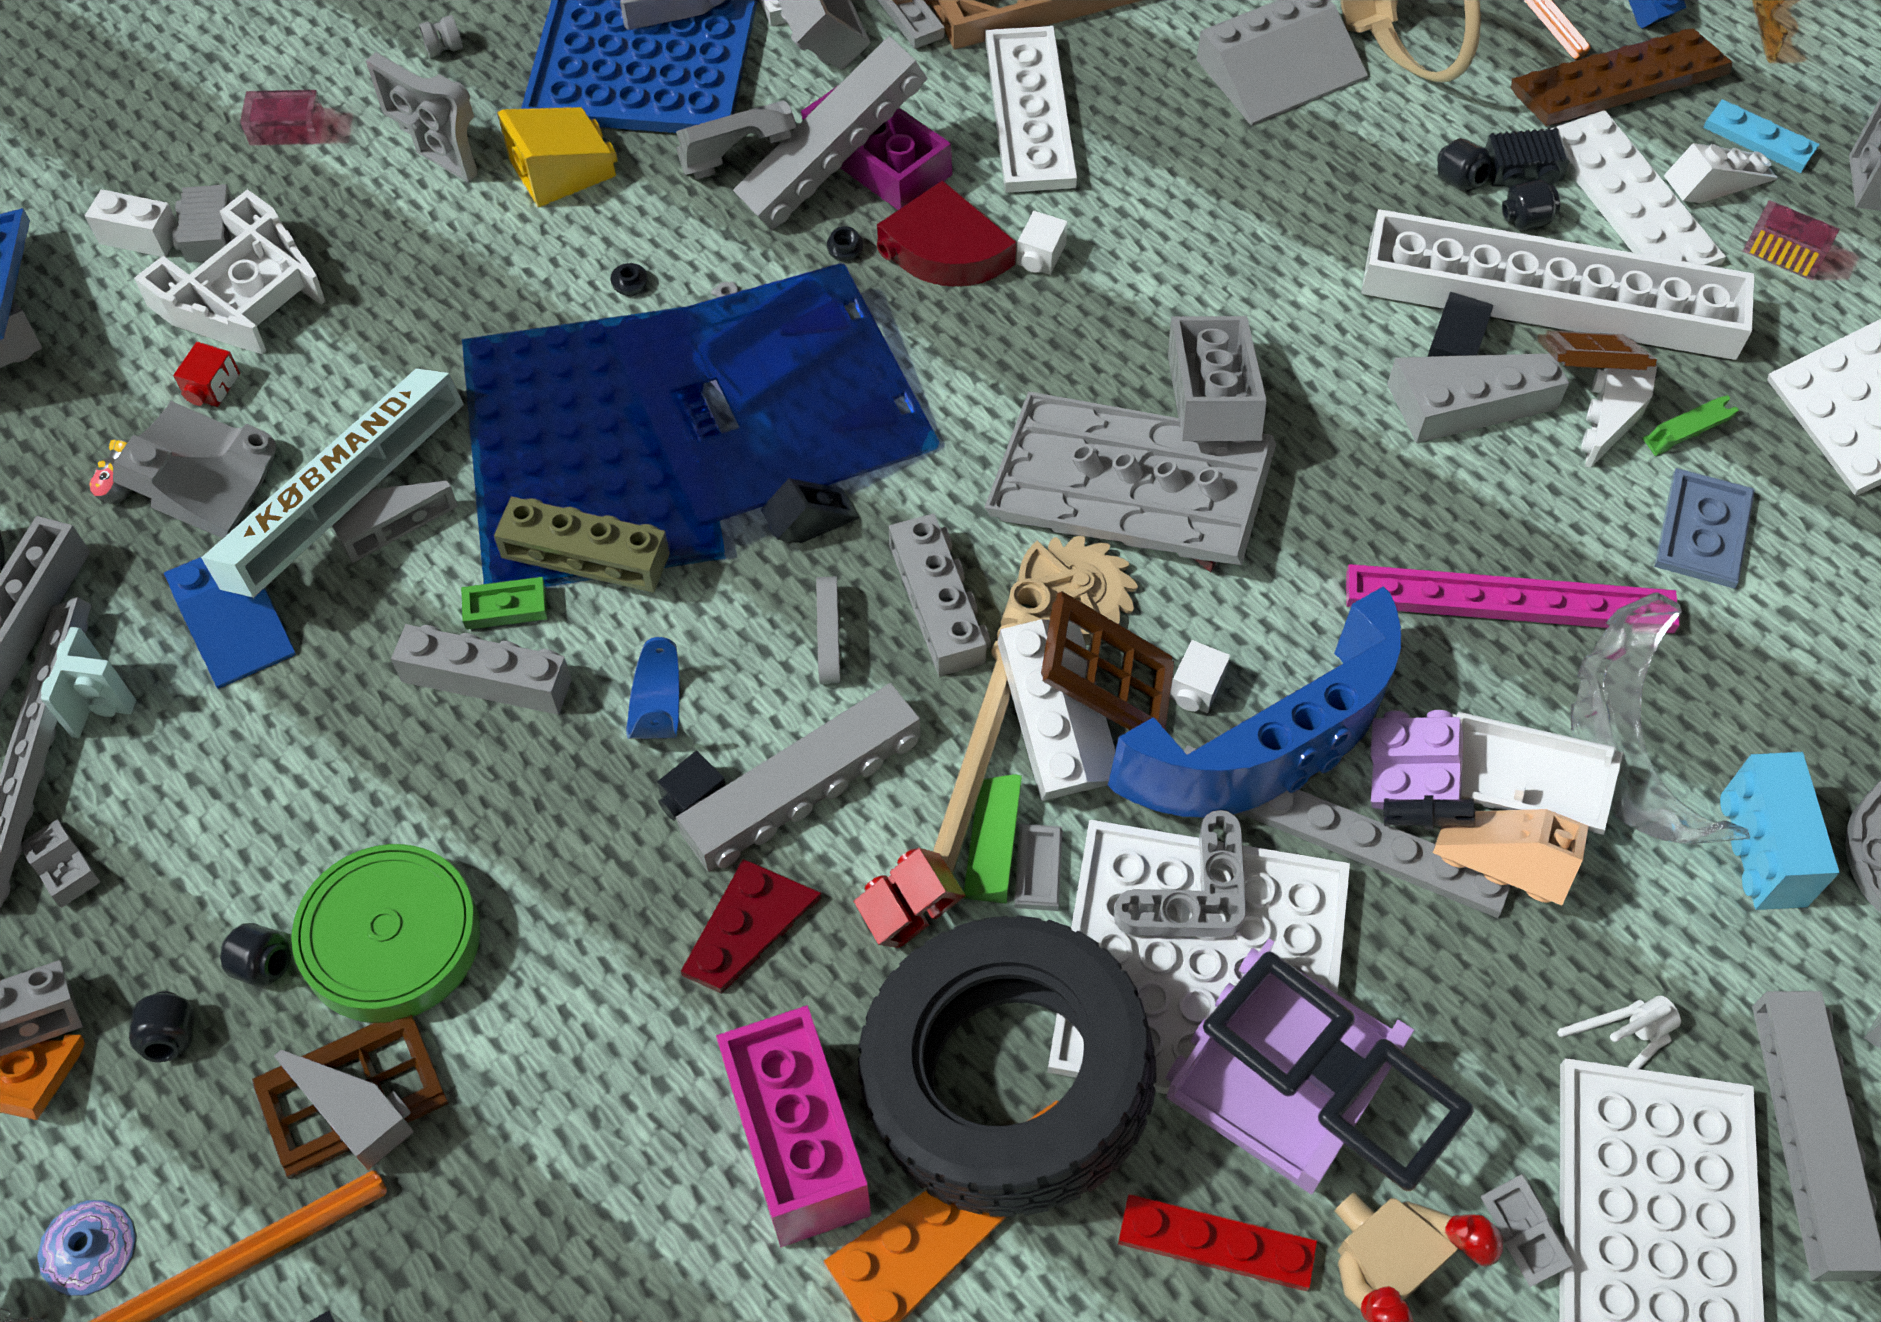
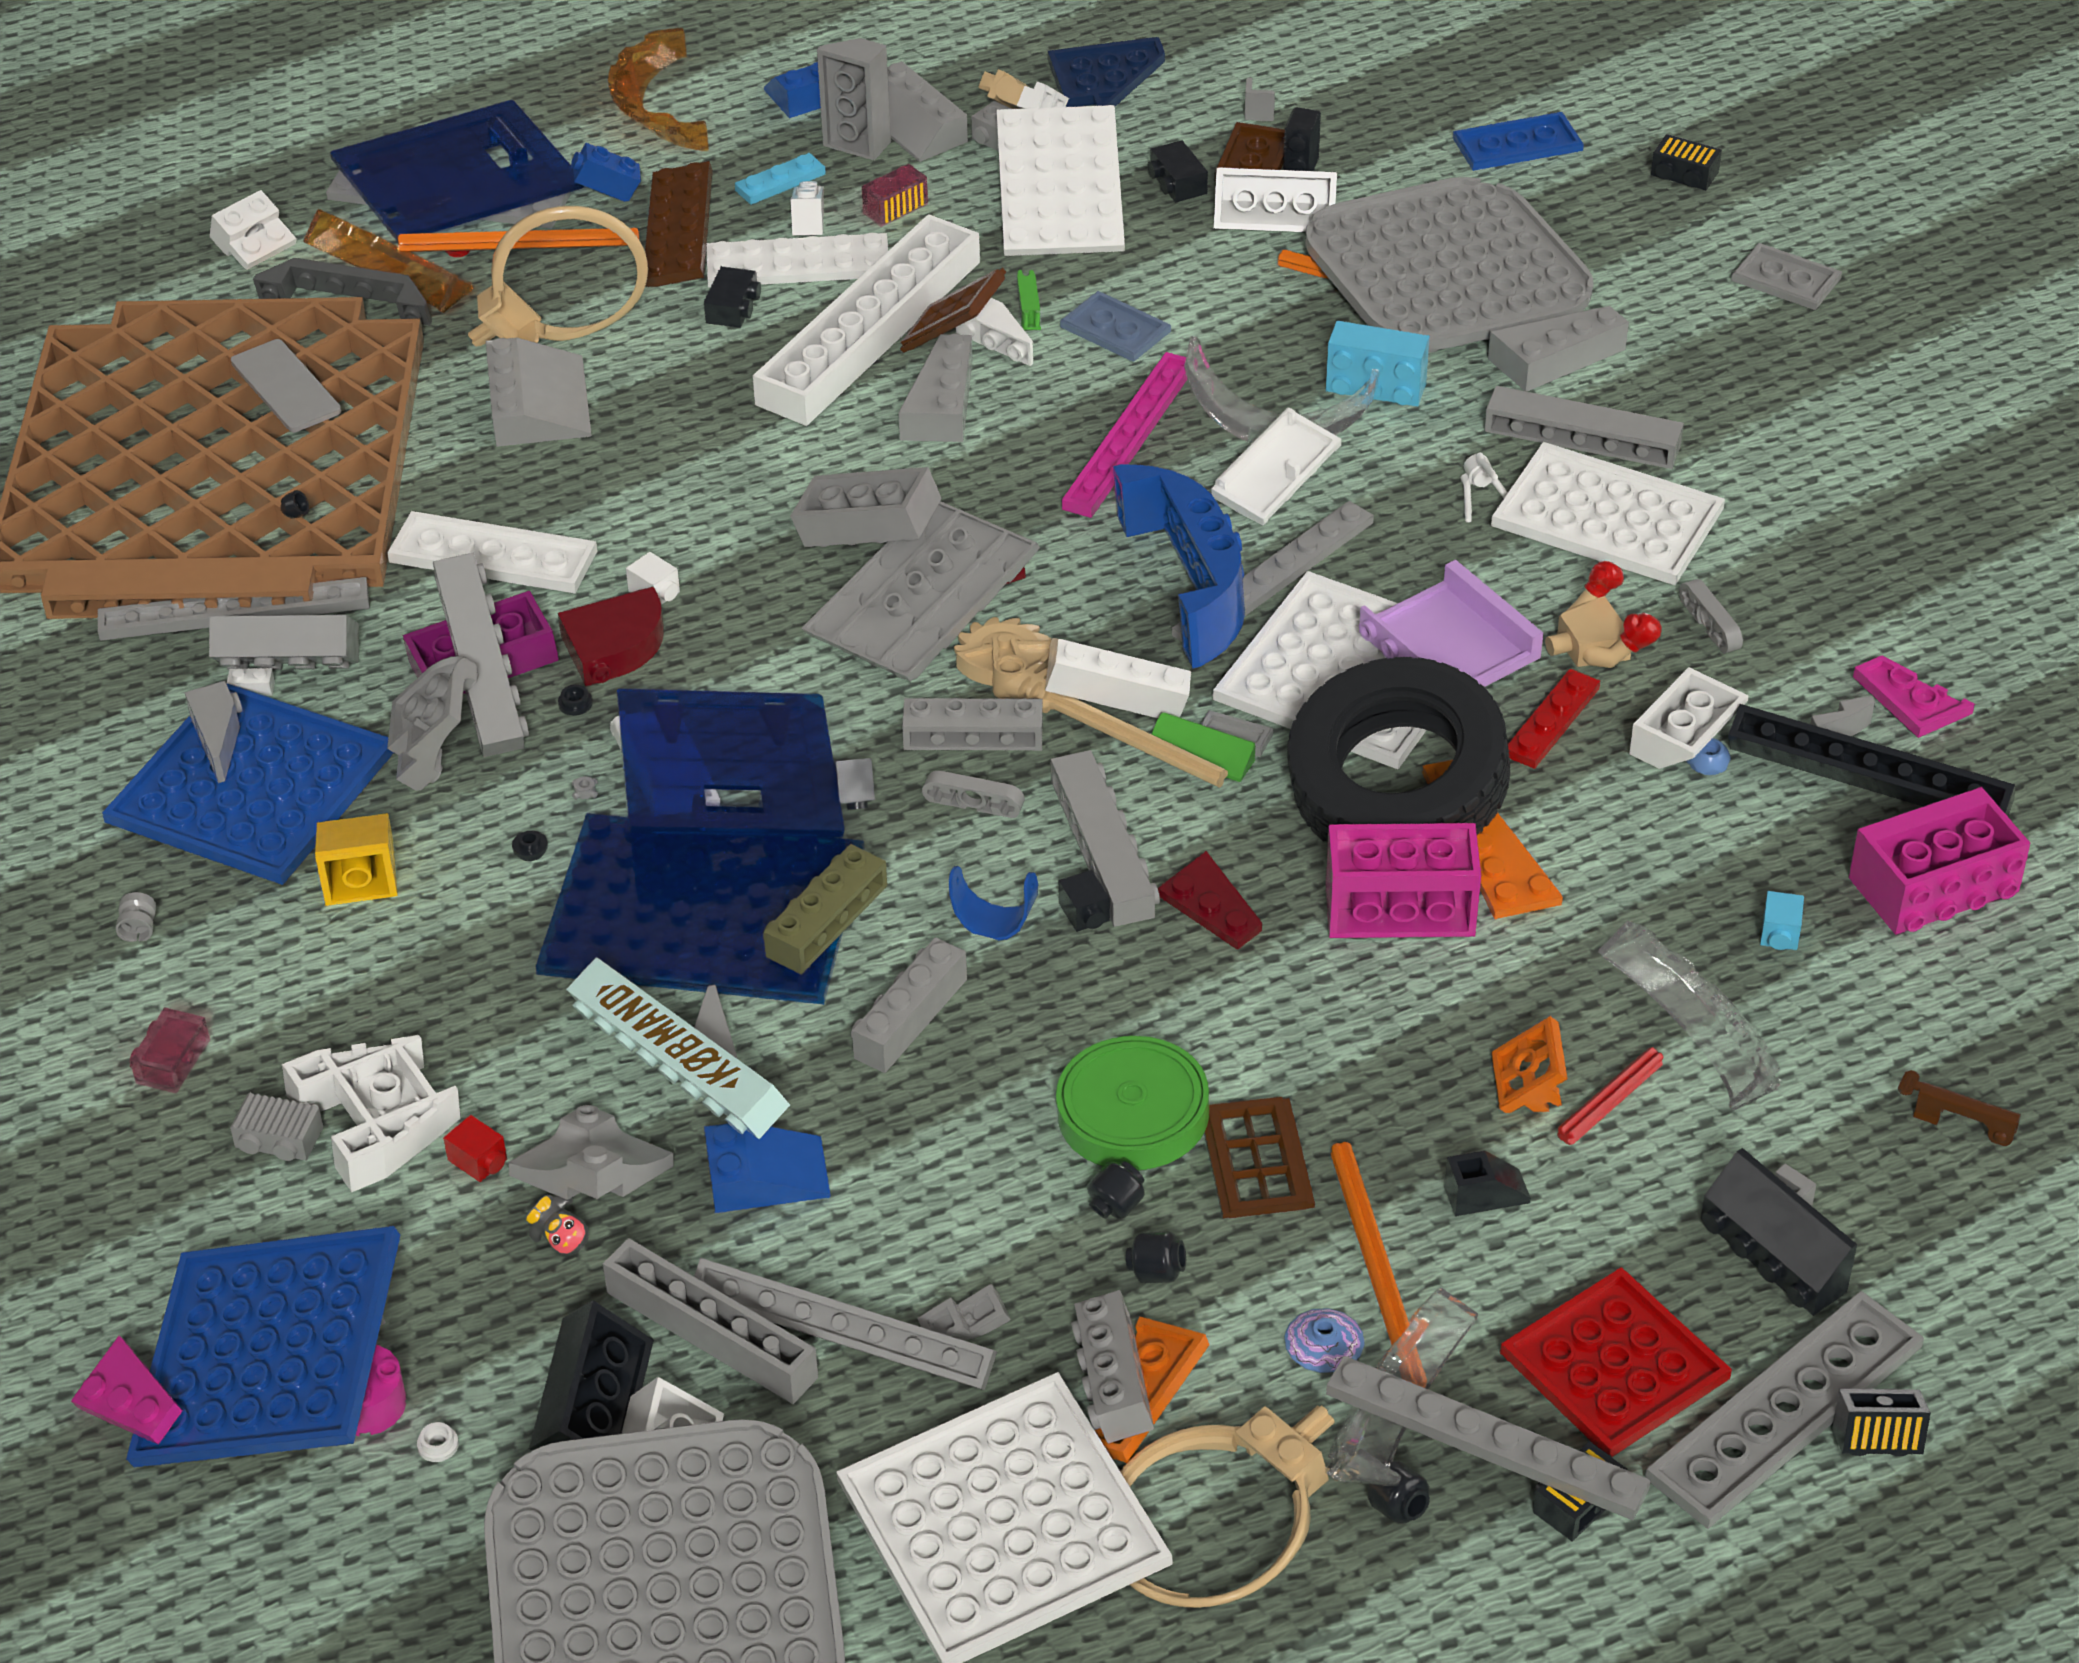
camera: 70 degrees left, 15 degrees down
(83, 684) = (800, 1257): light aqua bracket -> none
(132, 223) = (246, 1179): white brick -> none
(352, 1107) = (1281, 1138): light grey slope -> none
(430, 111) = (273, 918): light grey slope -> none
(504, 603) = (844, 986): bright green plate -> none
(896, 903) = (1241, 799): piece -> none
(1084, 690) = (1100, 634): reddish brown piece -> none
(1199, 677) = (1119, 603): white brick -> none
(1212, 892) = (1304, 640): light grey beam -> none
(1339, 1070) = (1471, 597): black bar -> none
(1416, 757) = (1252, 510): lavender plate -> none
(1429, 812) = (1290, 515): black pin -> none
(1461, 327) = (880, 382): black panel -> none
(1464, 164) = (717, 329): black head -> none
(1519, 848) = (1337, 481): light nougat slope -> none
(1527, 1230) = (1577, 568): light grey slope -> none
(1531, 205) = (781, 307): black head -> none

